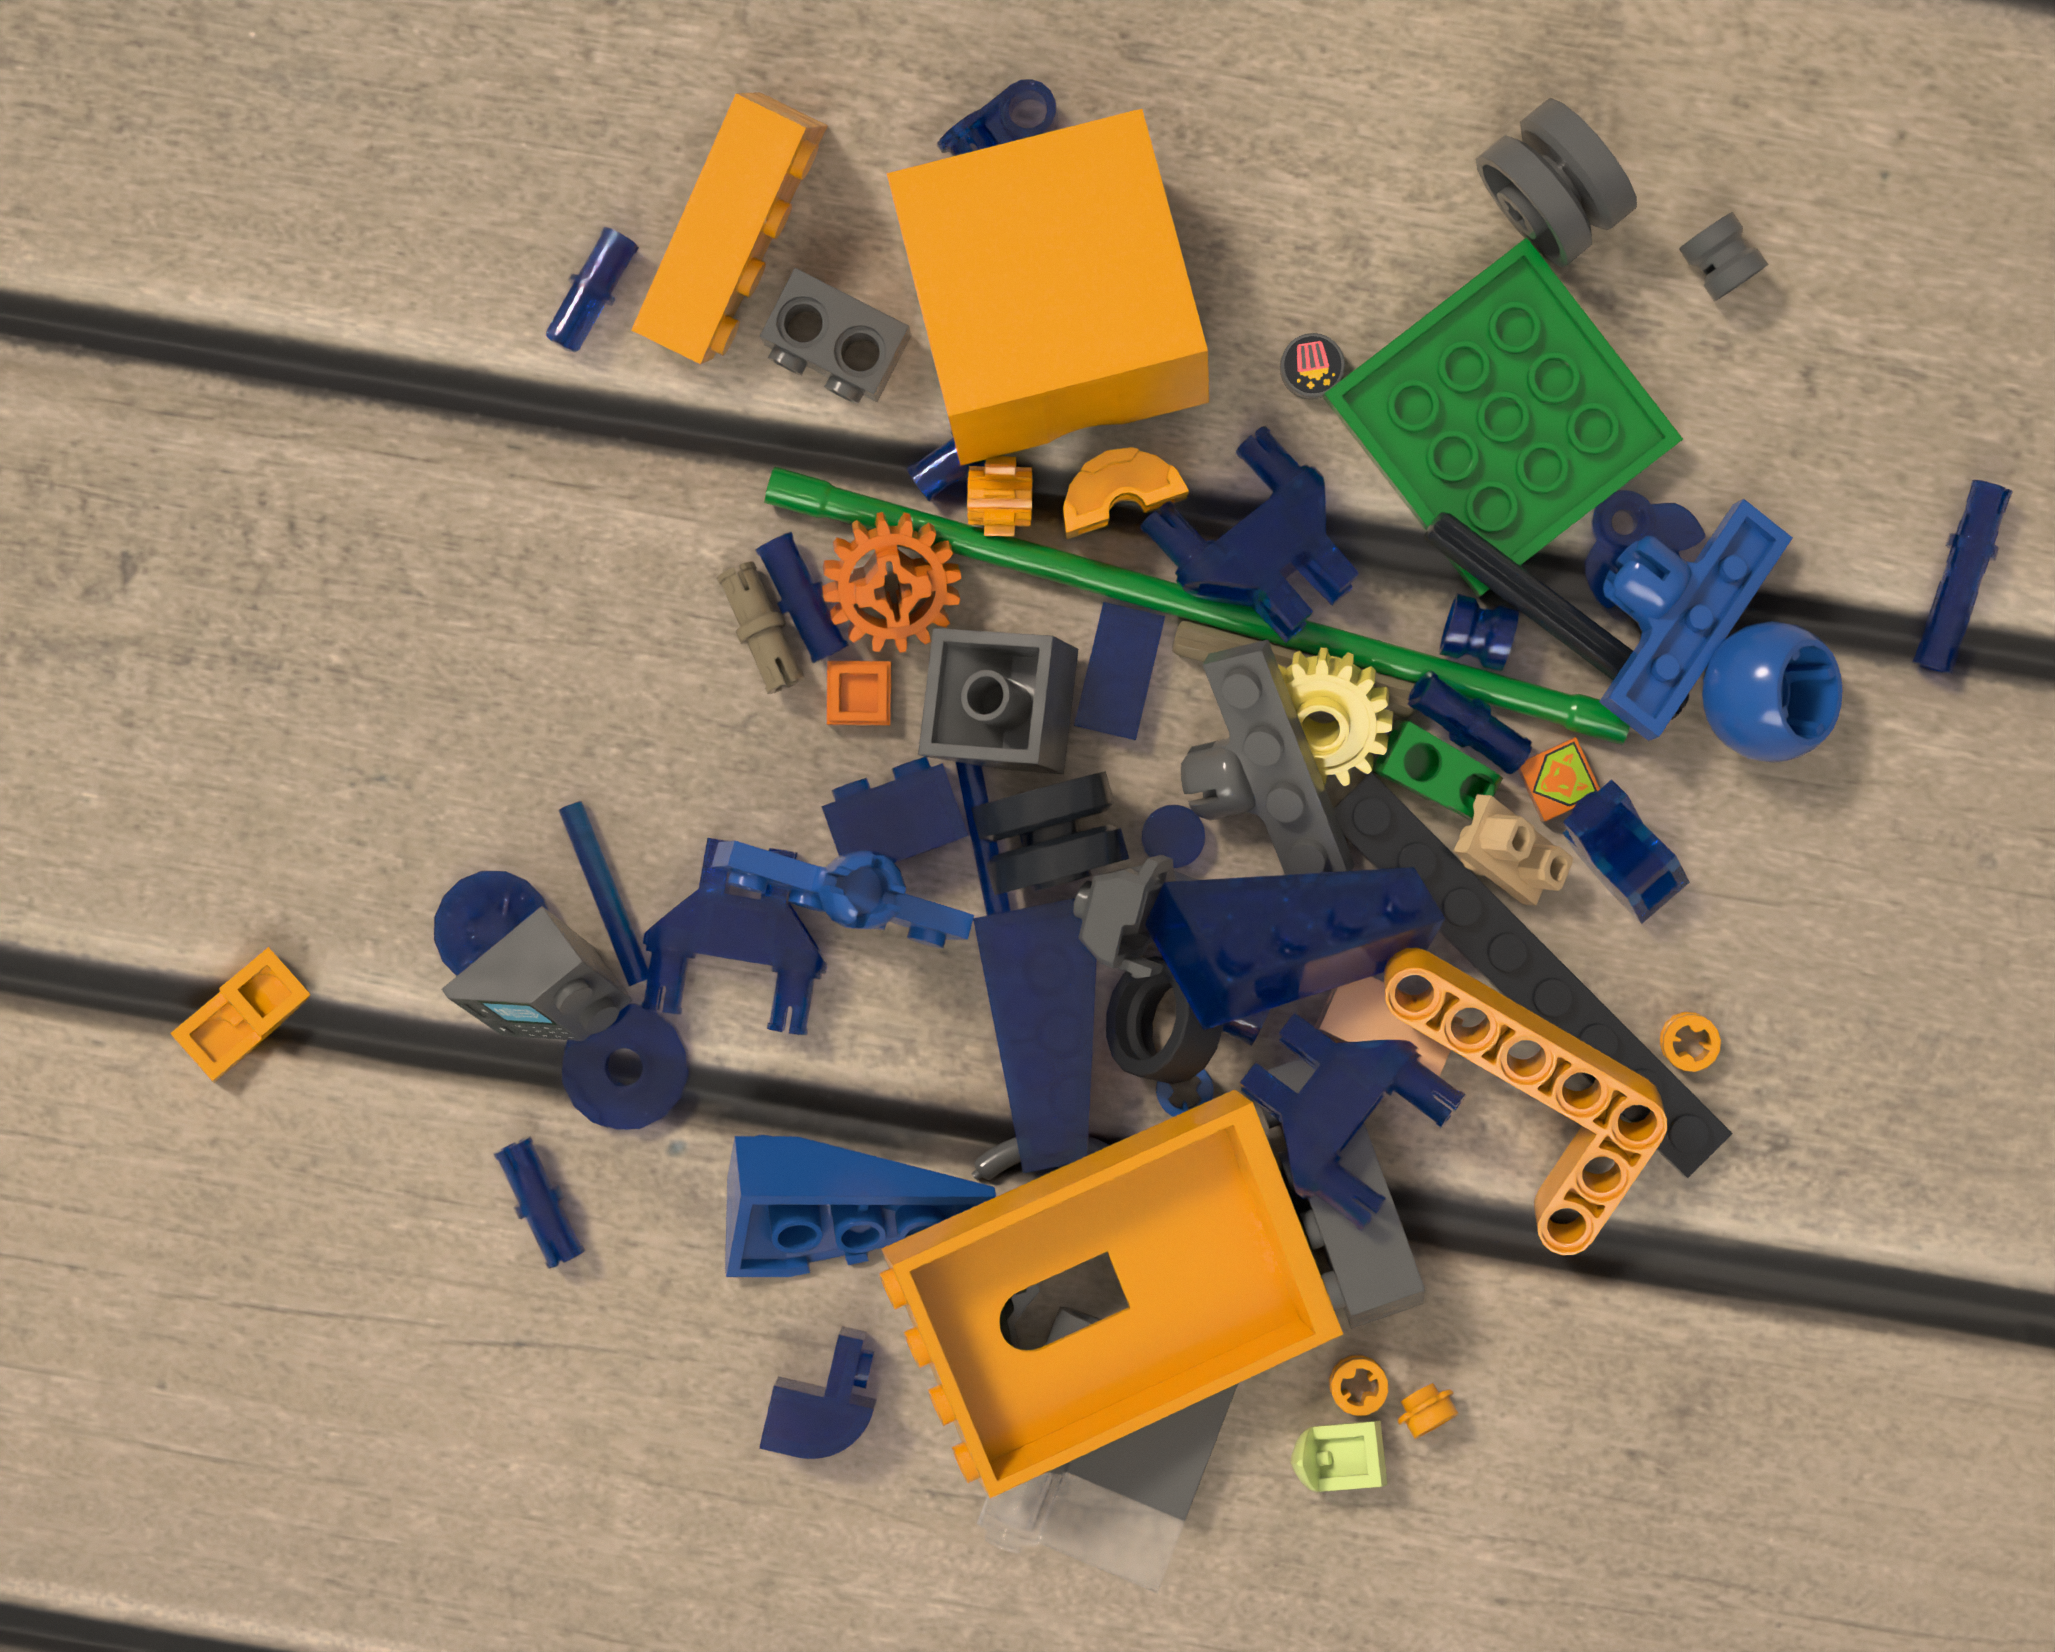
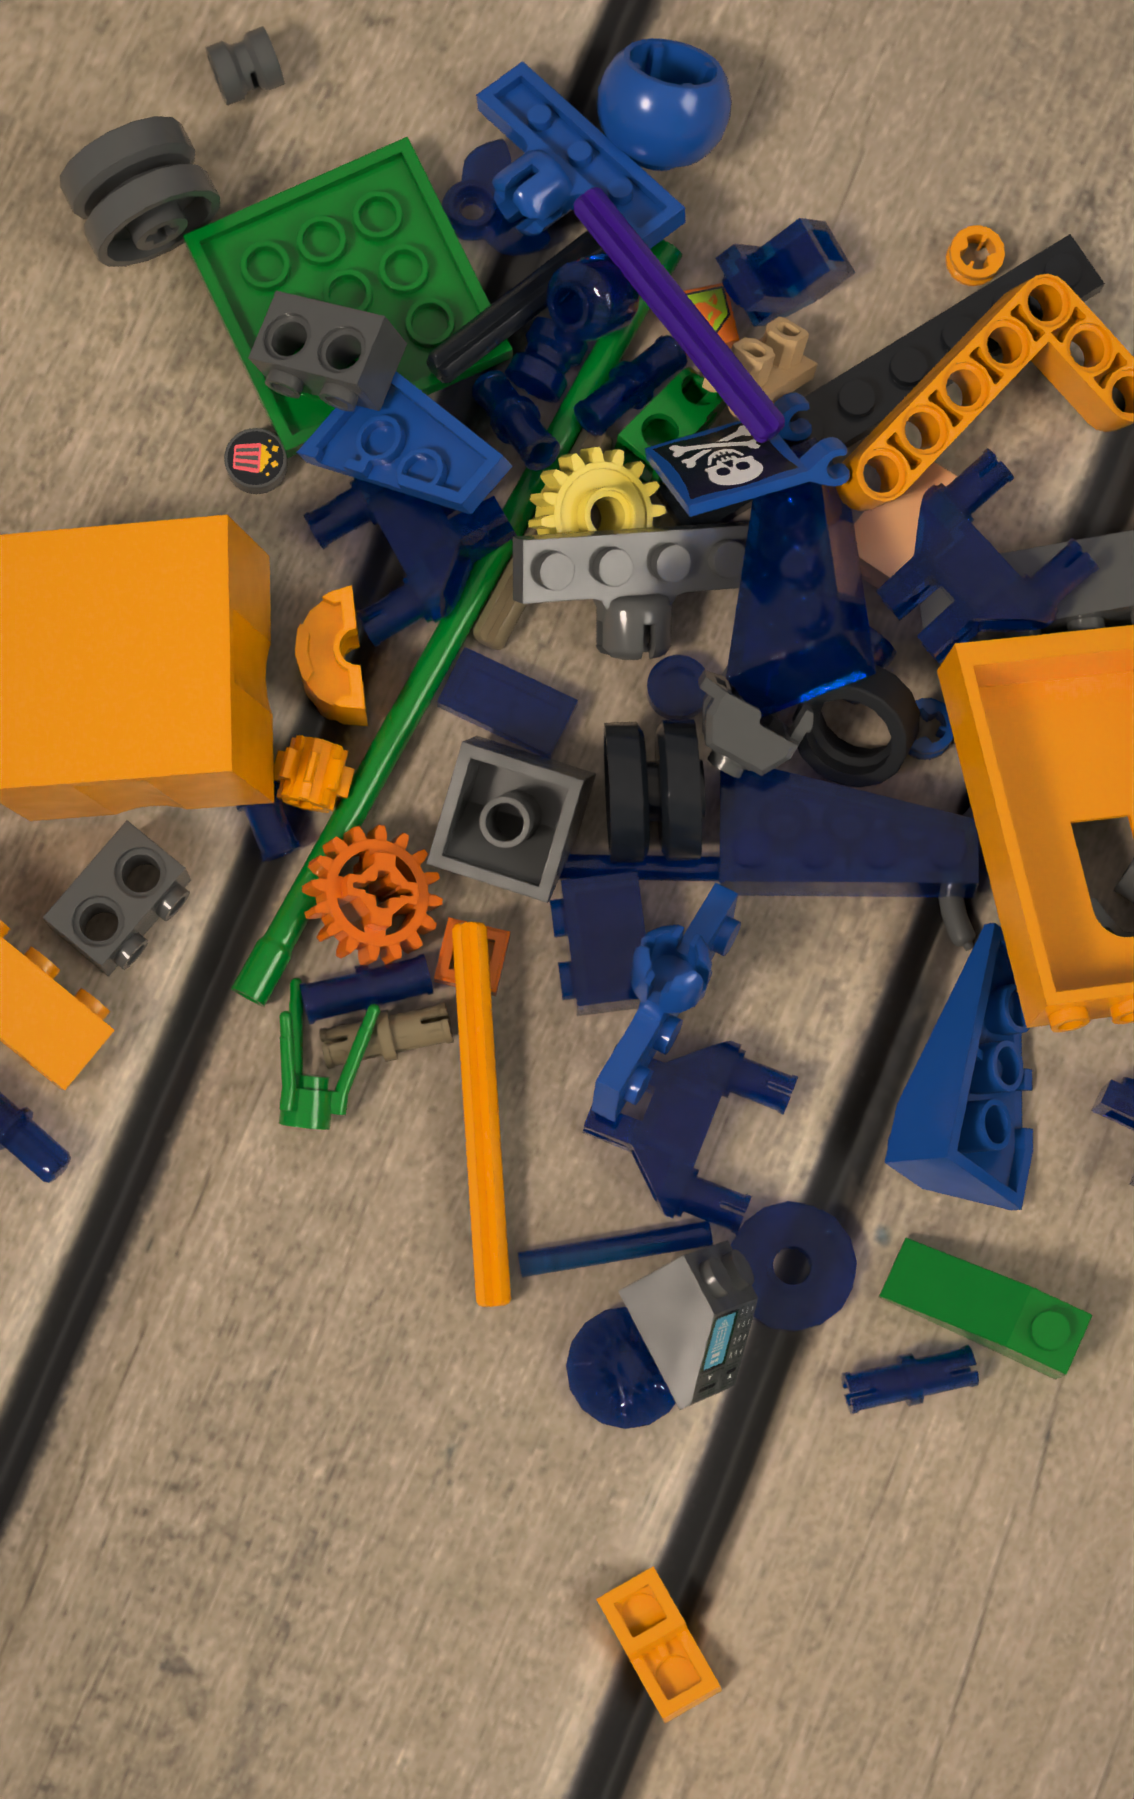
camera: 85 degrees left, 10 degrees down
(621, 1262) = (986, 1308): none -> green slope
(681, 563) = (306, 1097): none -> green plant
(703, 736) = (481, 1114): none -> light orange axle
(1349, 511) = (409, 449): none -> blue wing
(1402, 853) = (732, 467): none -> flag
(1404, 615) = (515, 420): none -> clear blue pin
(1433, 412) = (331, 341): none -> dark grey brick
(1539, 754) = (679, 315): none -> dark purple axle
(1545, 664) = (591, 298): none -> clear blue head

